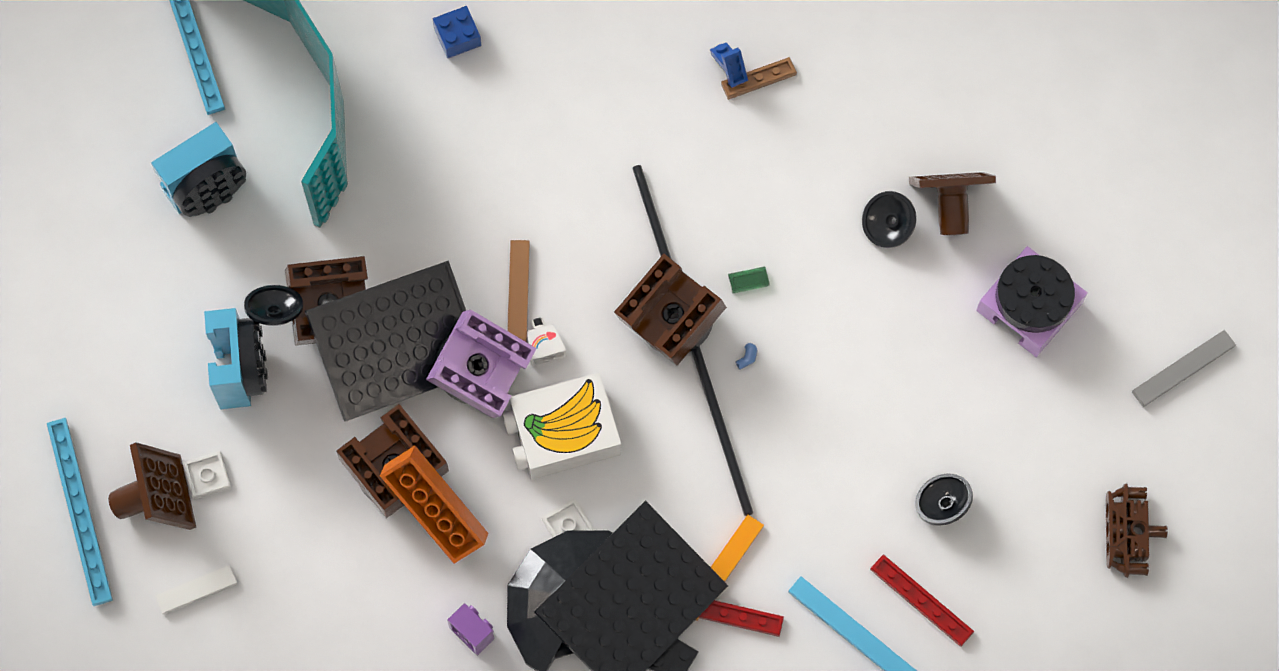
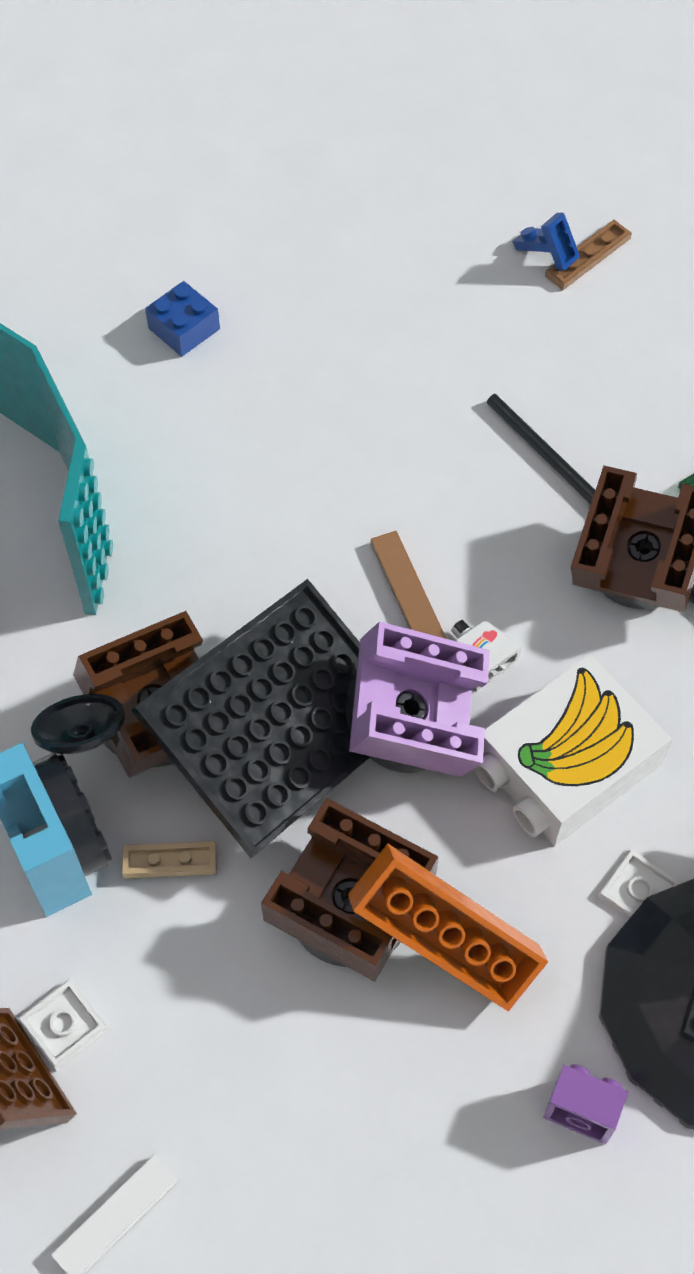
camera: 20 degrees left, 10 degrees down
(302, 402) = (169, 859): none -> tan plate

